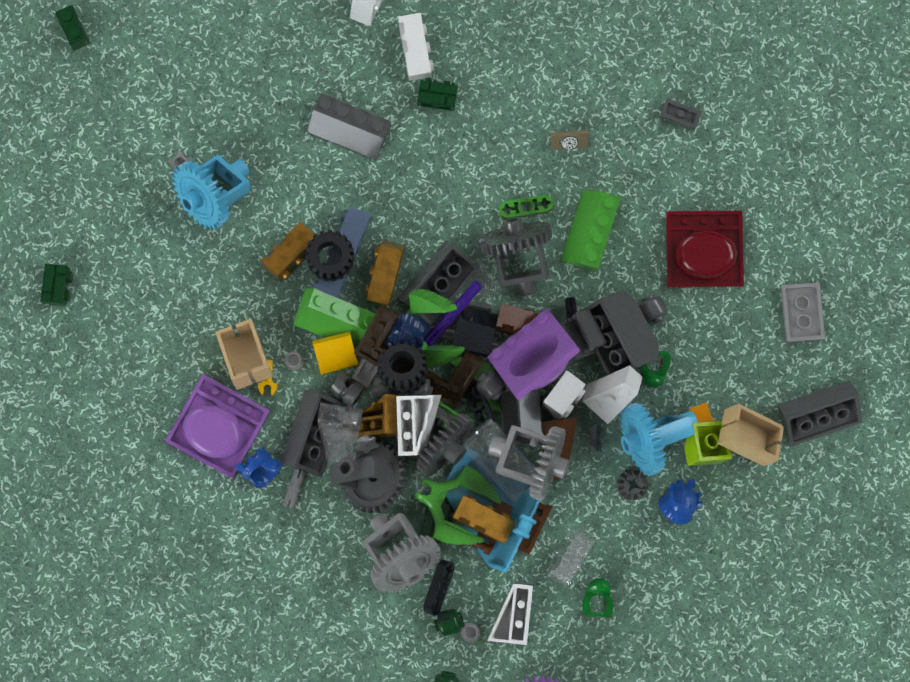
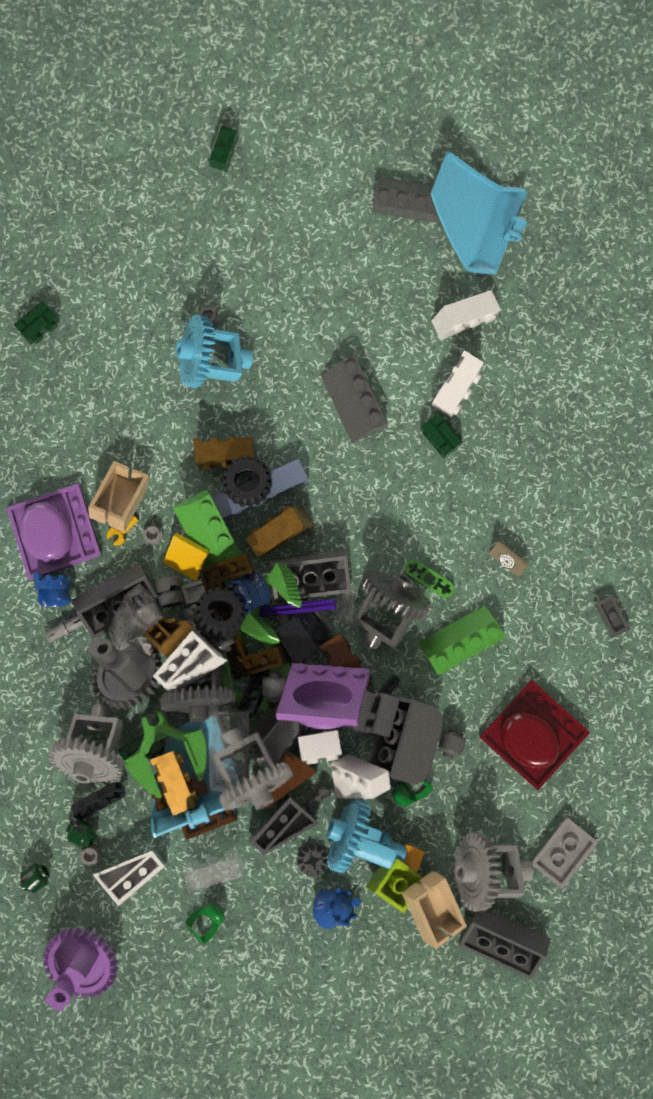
camera: 50 degrees right, 0 degrees up
(587, 479) = (281, 826): none -> dark grey wedge
(757, 379) = (478, 872): none -> light grey piece

